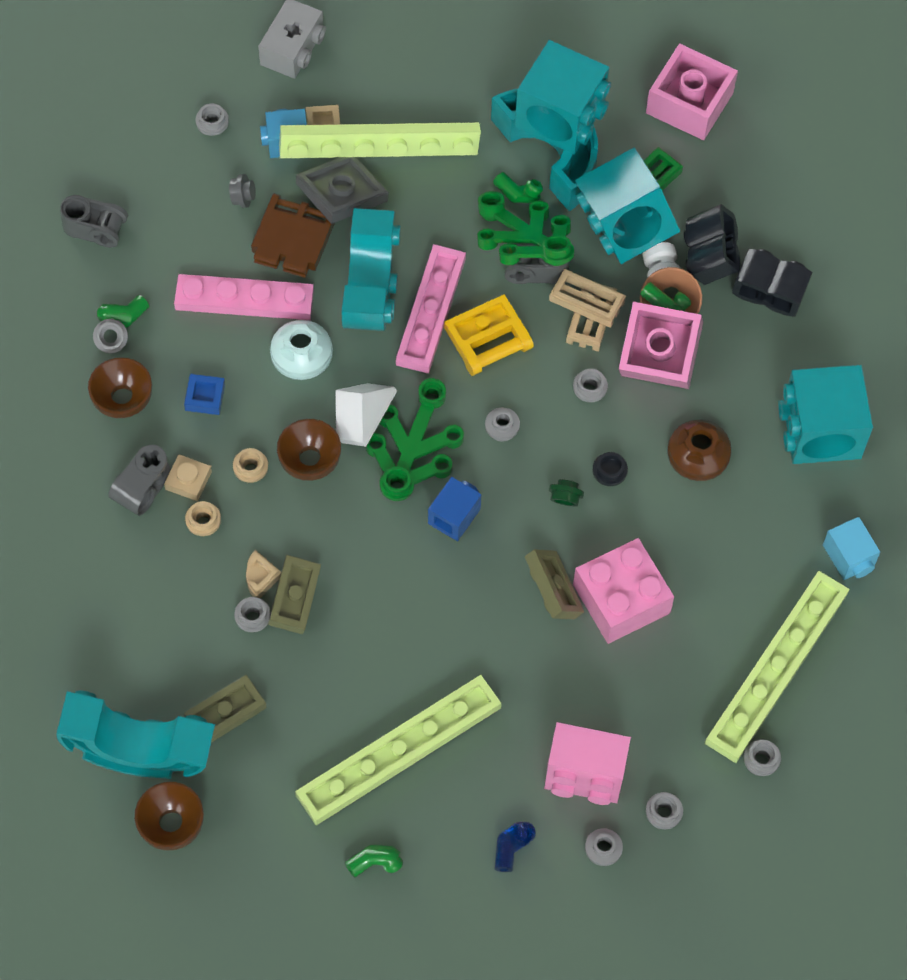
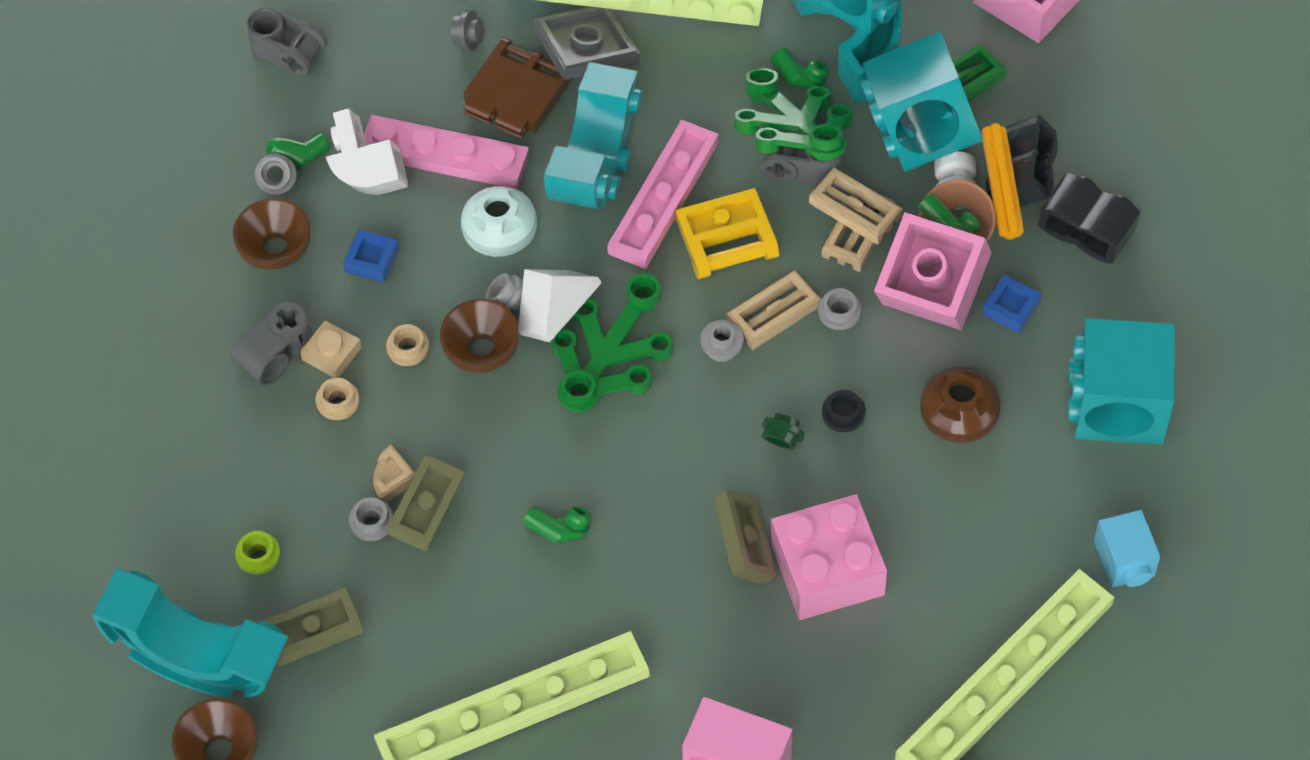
camera: 15 degrees right, 5 degrees down
(162, 647) = (254, 542): none -> lime plate
(186, 321) = (367, 168): none -> white brick
(321, 408) = (506, 291): none -> light grey plate
(406, 599) = (561, 529): none -> green arm
(454, 508) = (640, 428): blue brick -> none
(558, 373) = (783, 321): none -> tan tile
(702, 264) = (1002, 181): none -> light orange axle
(724, 361) = (1011, 304): none -> blue plate

